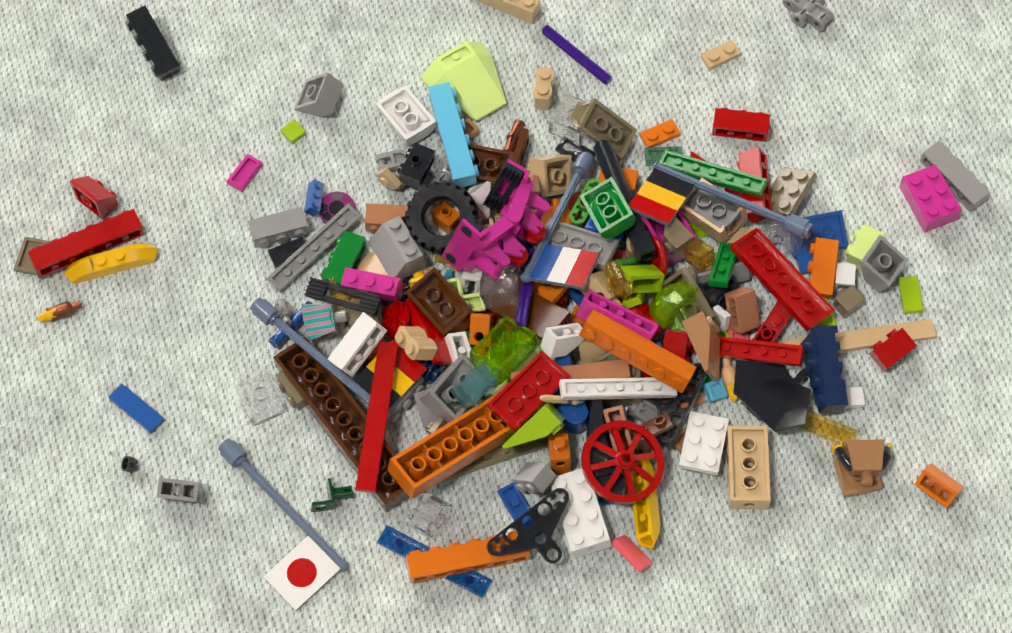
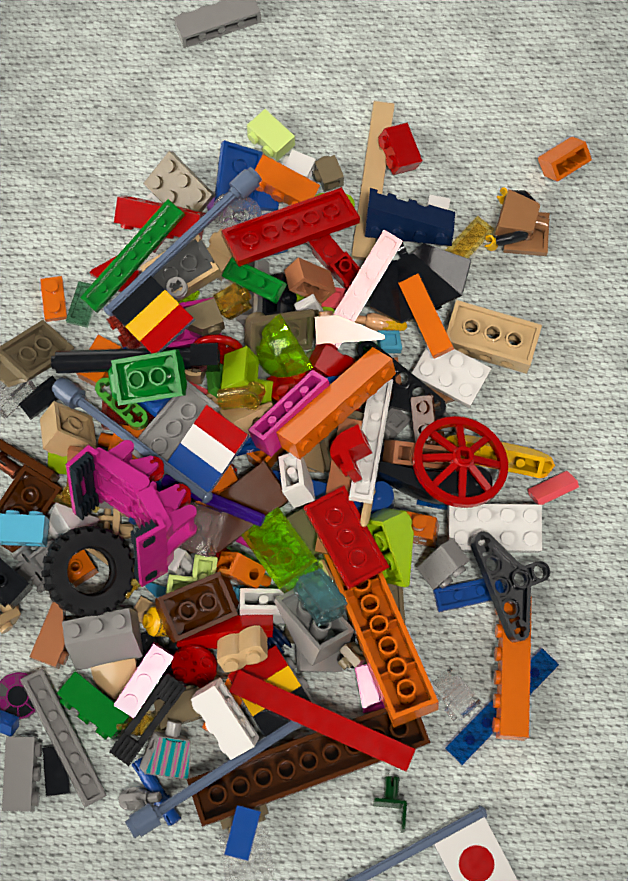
camera: 75 degrees left, 10 degrees up
(275, 385) = (242, 833): none -> blue tile
(597, 367) = (347, 449): none -> red brick
(698, 210) = (174, 281): none -> light grey bush
(741, 124) = (75, 208): red brick -> none
(743, 406) = (426, 316): none -> orange tile
(882, 264) = (303, 122): light grey slope -> none
(910, 295) = (338, 112): lime tile -> none
(930, 198) = (235, 51): dark pink brick -> none

